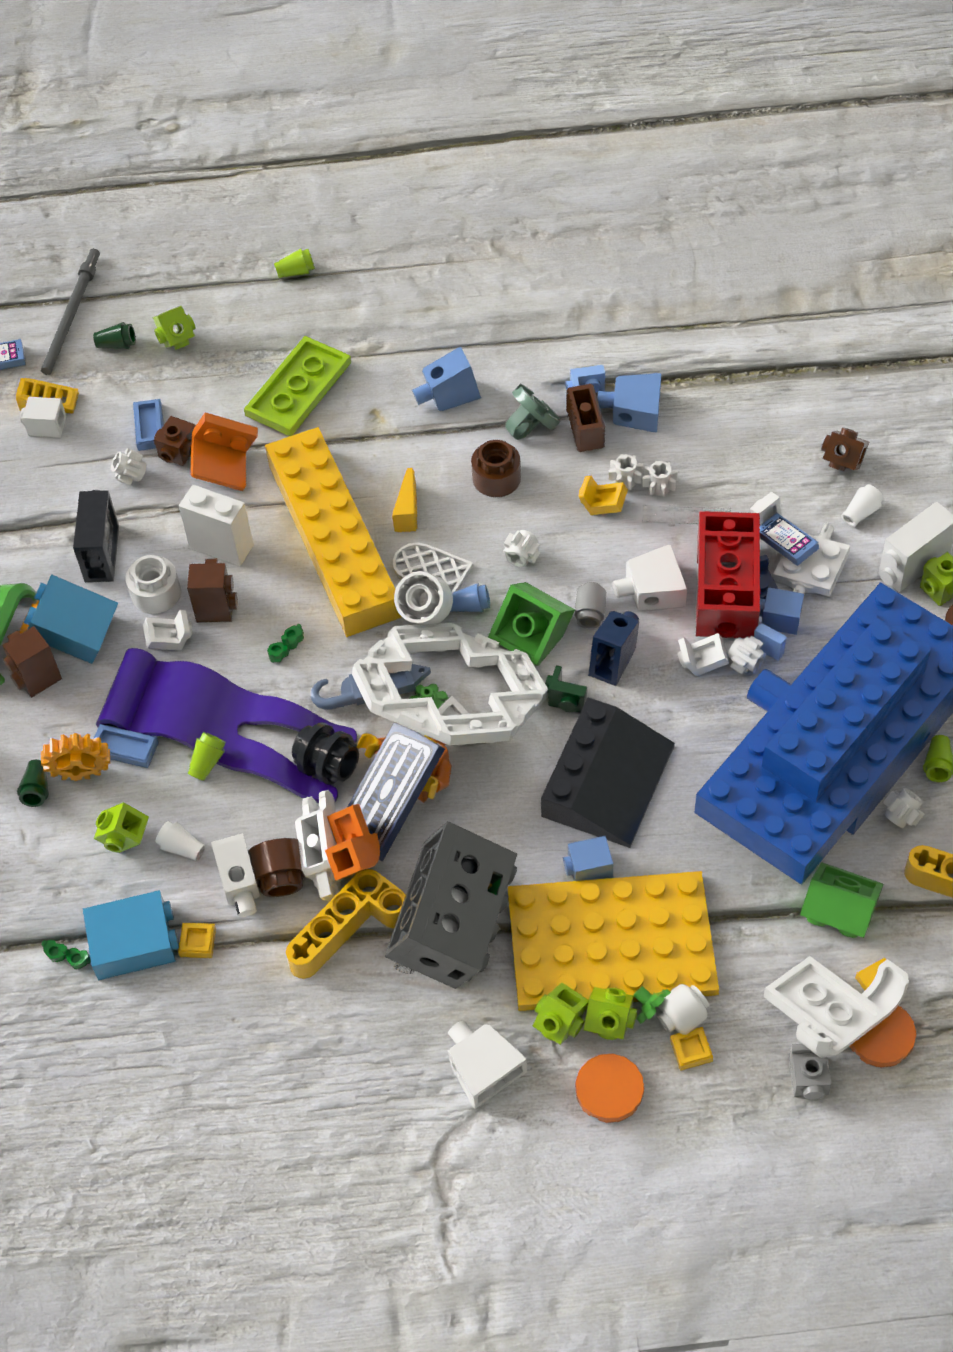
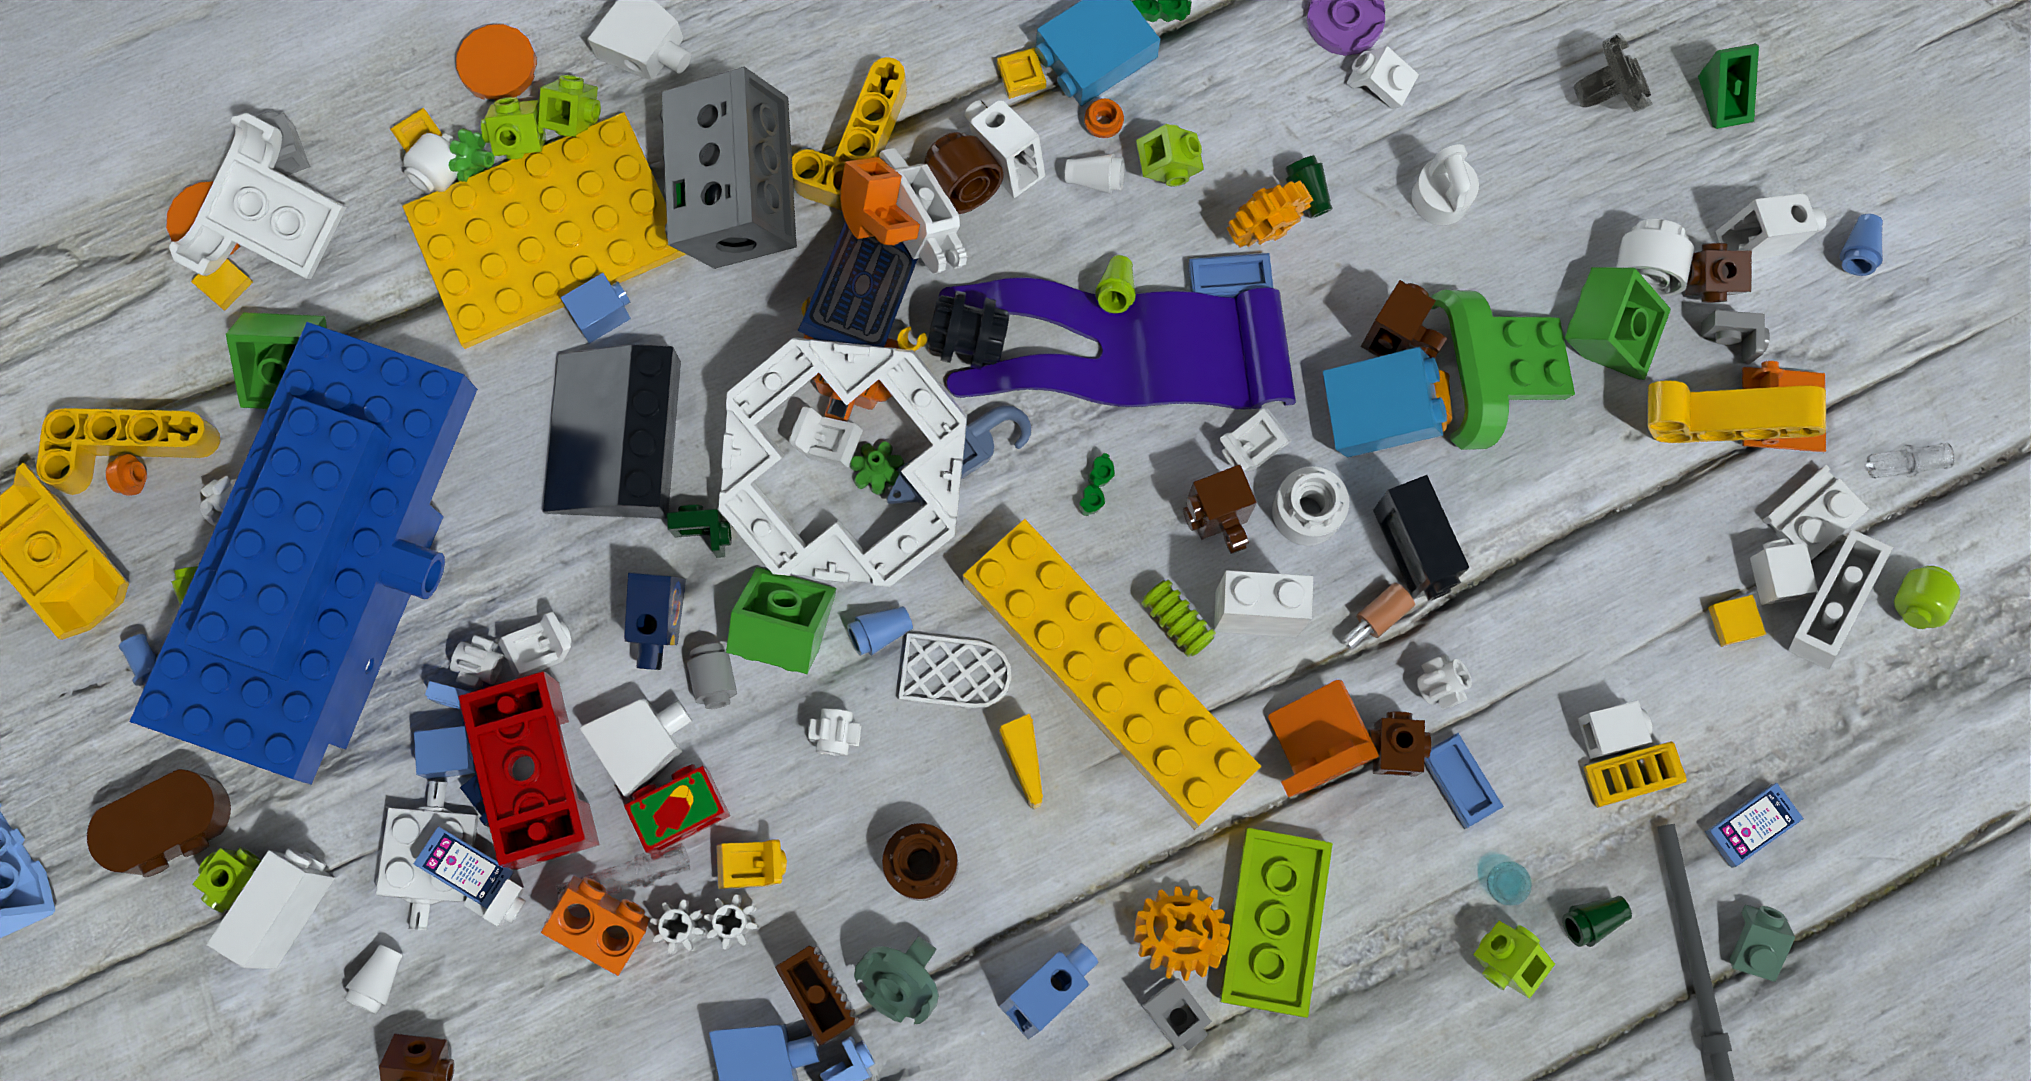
camera: 155 degrees right, 20 degrees up
(29, 301) = (1763, 942): none -> sand green bracket
(145, 516) = (1381, 614): none -> nougat piece
(150, 875) = (1106, 108): none -> orange plate
(152, 367) = (1509, 883): none -> clear light blue plate
(272, 549) = (1178, 618): none -> lime piece
(367, 387) = (1183, 938): none -> light orange gear
(379, 358) = (1177, 996): none -> light grey brick
(409, 592) = (928, 582): white piece -> none
(637, 535) = (676, 809): none -> brick
(710, 485) = (589, 934): none -> orange brick

